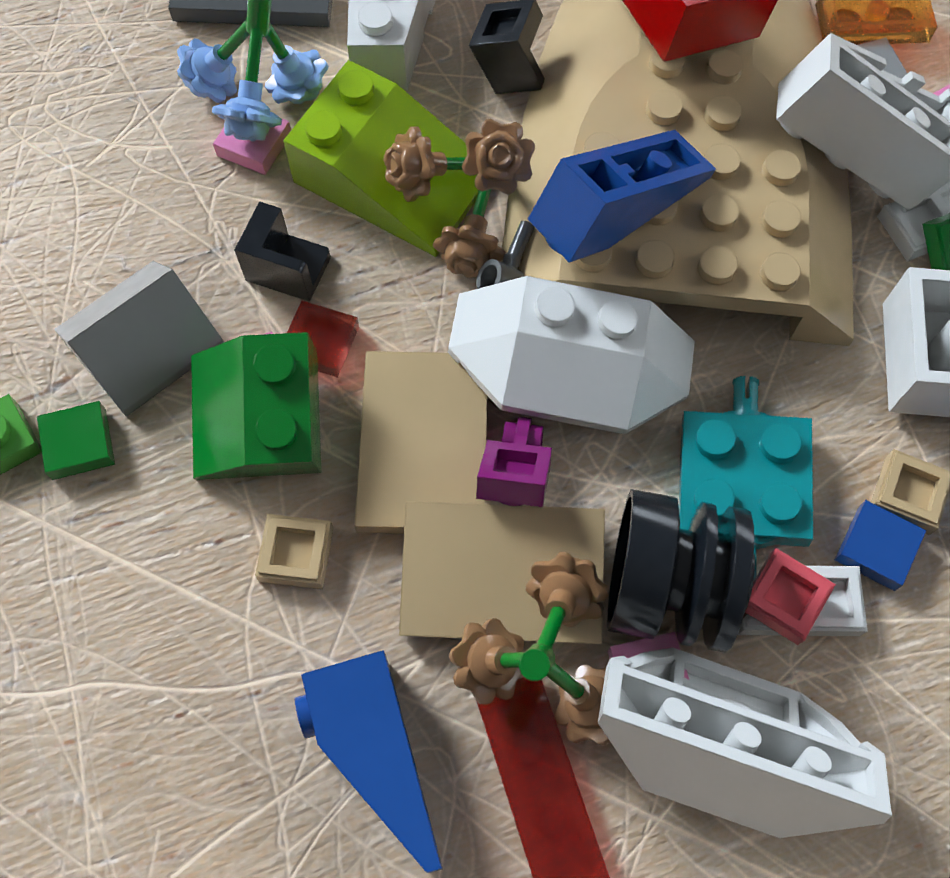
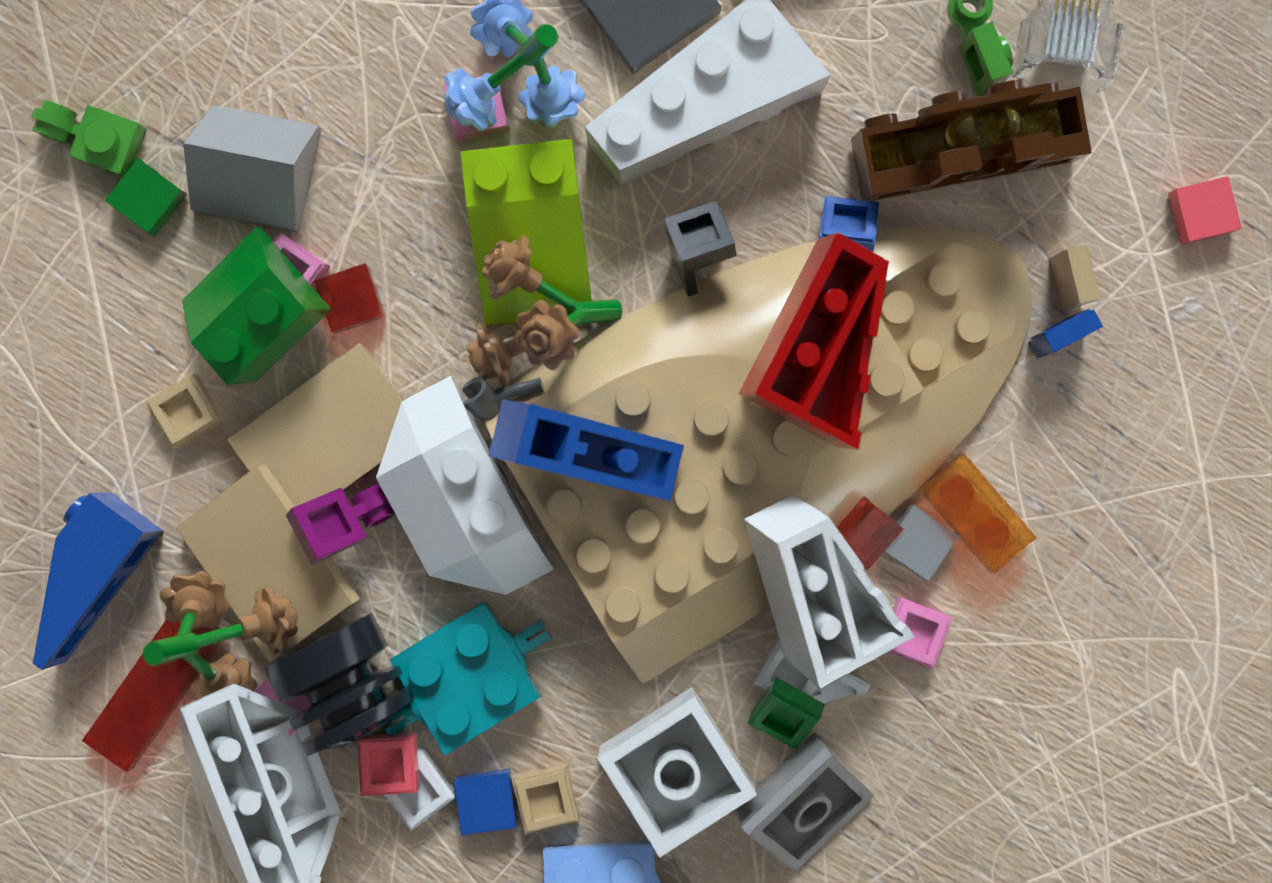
camera: 55 degrees right, 20 degrees up
(278, 259) = (389, 219): black panel -> none

